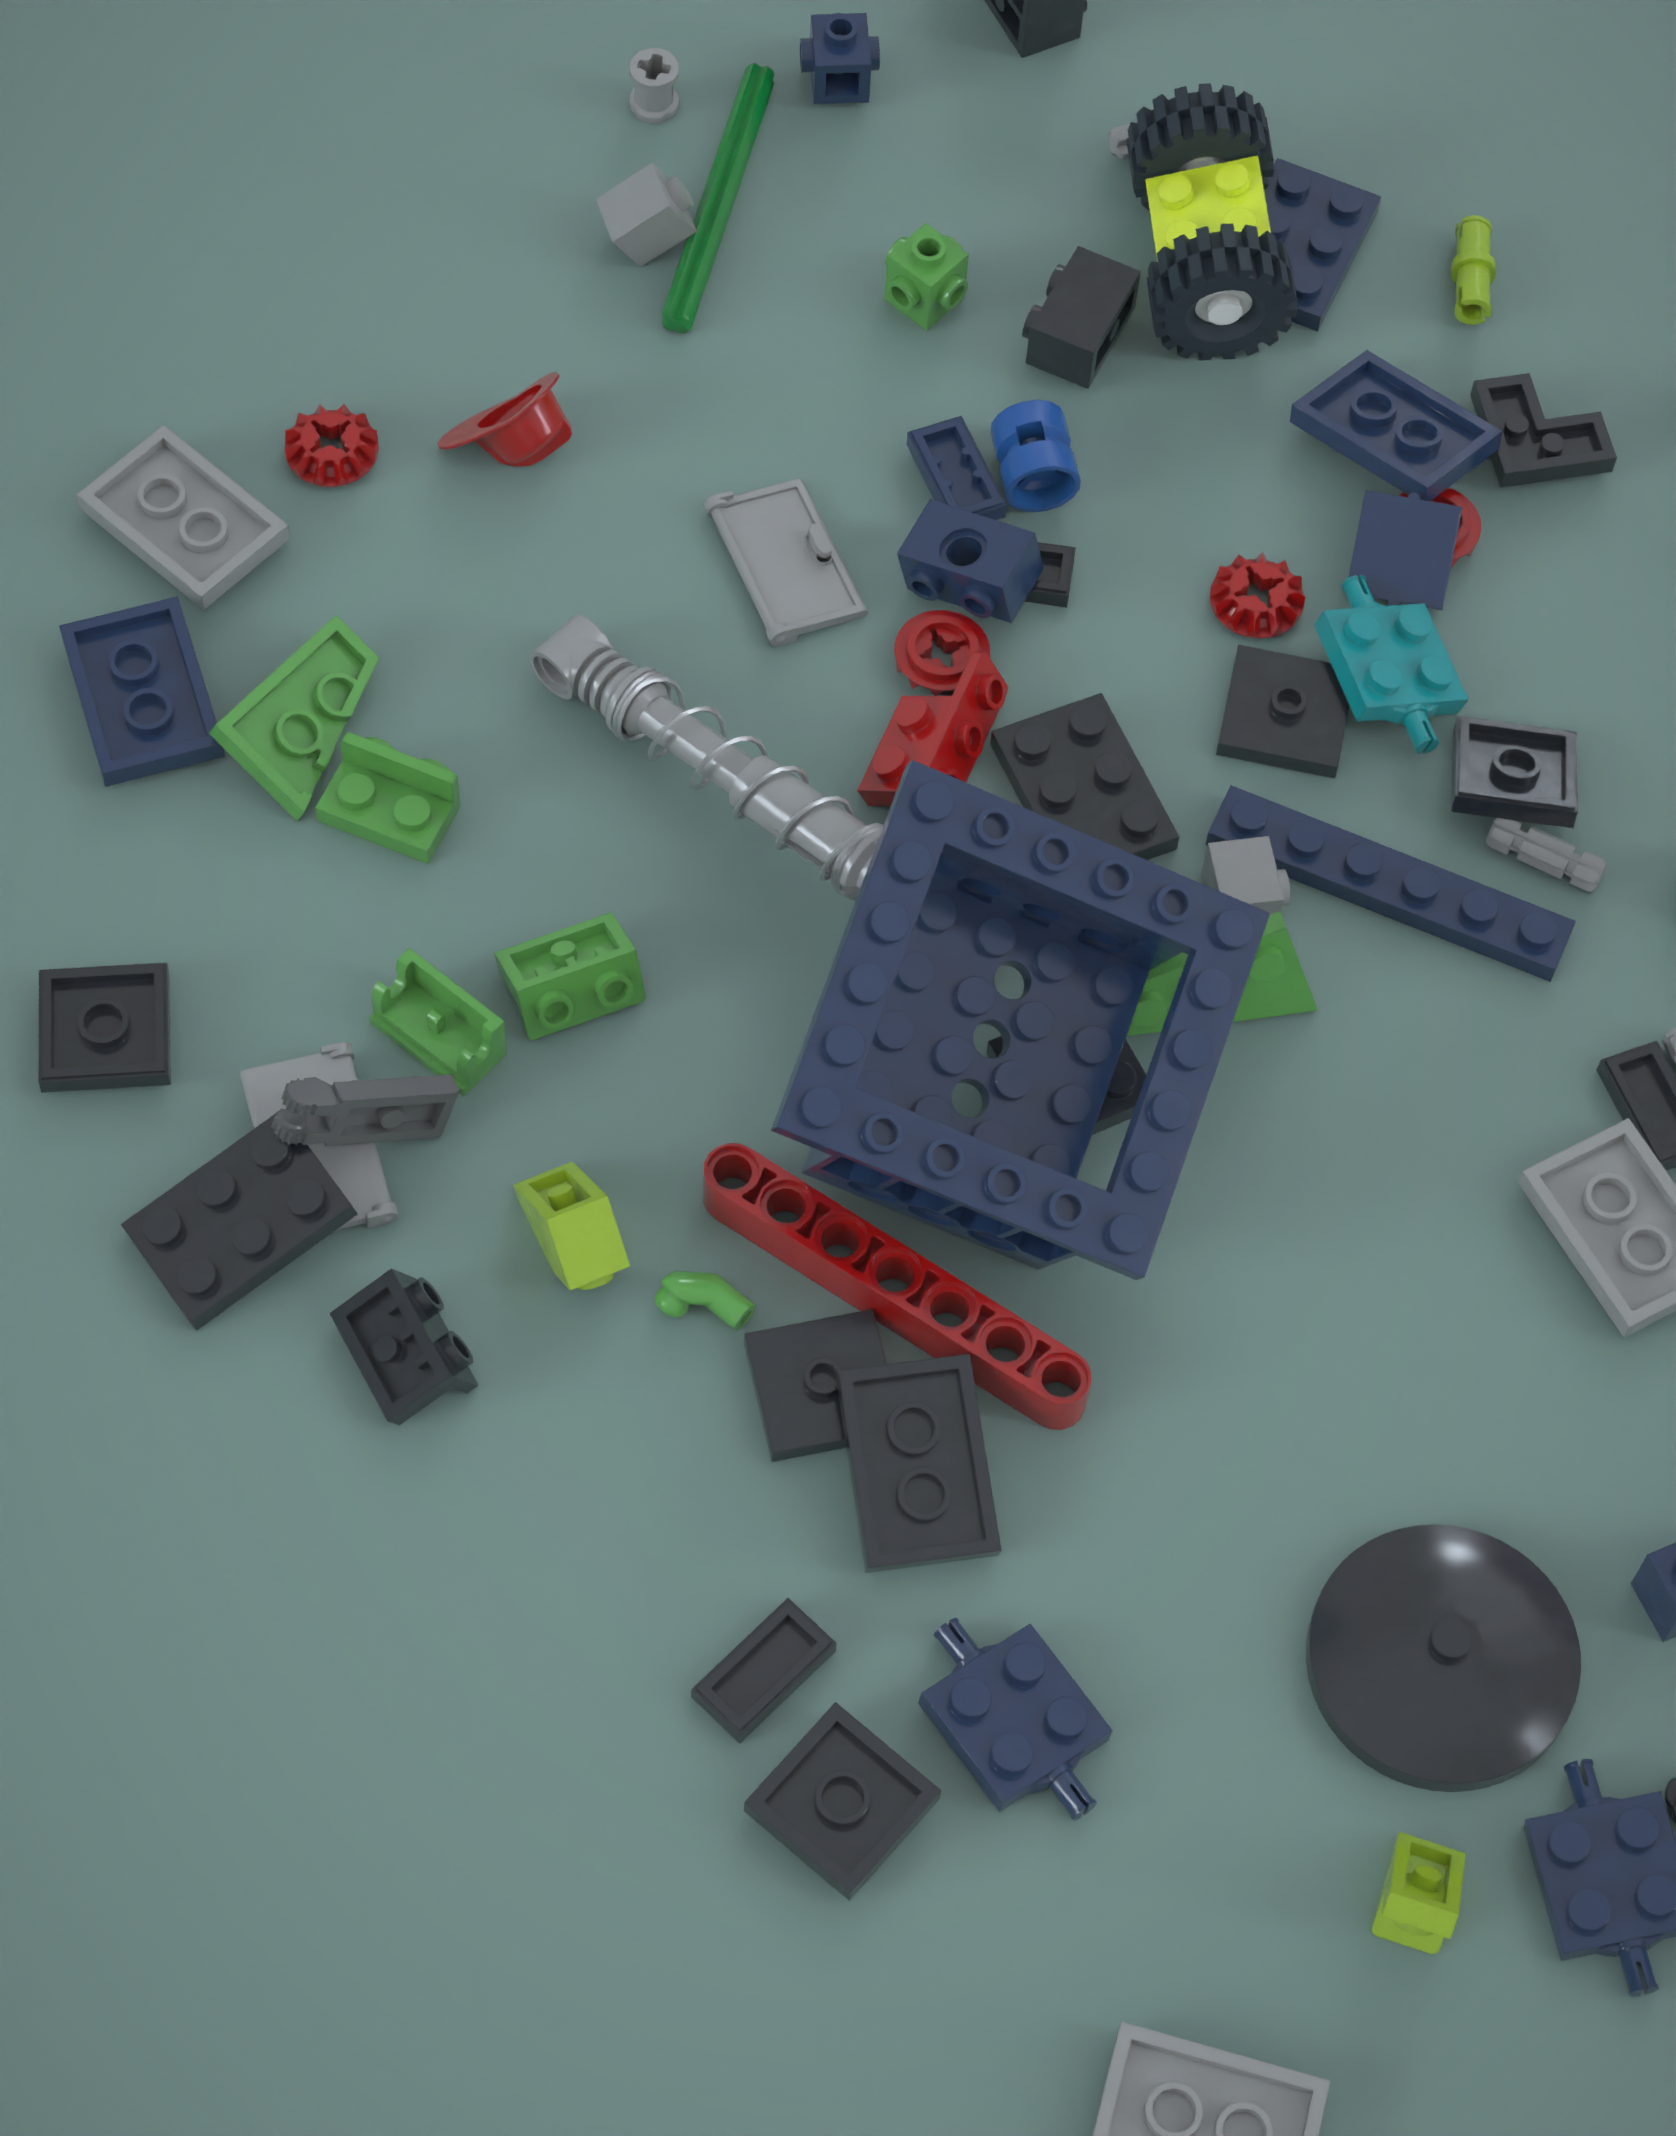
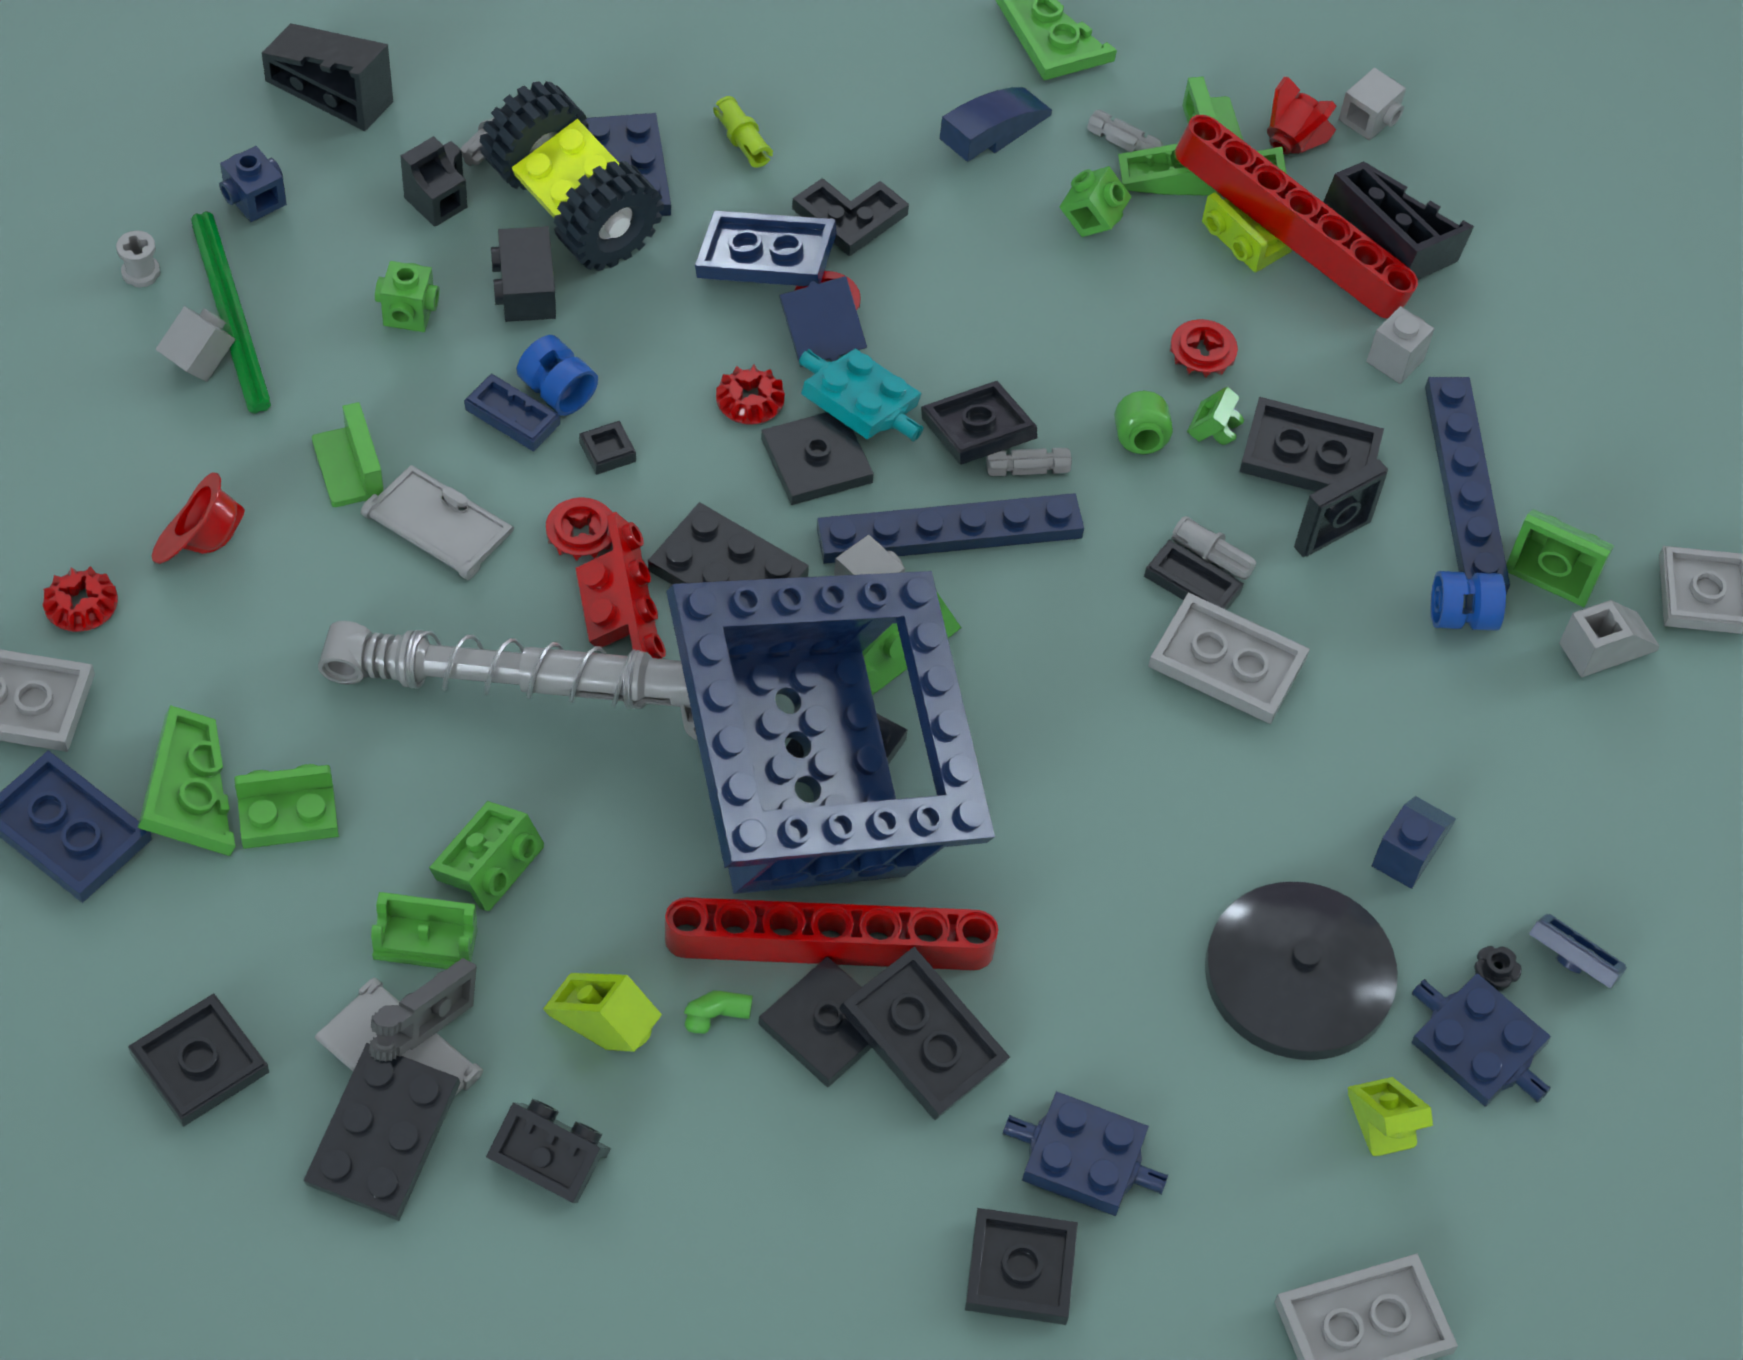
camera: 35 degrees left, 5 degrees down
(732, 436) = (349, 460): none -> bright green panel
(763, 1670) = (915, 1217): black tile -> none
(970, 561) = (544, 450): dark blue brick -> none
(1055, 152) = (434, 180): none -> black brick

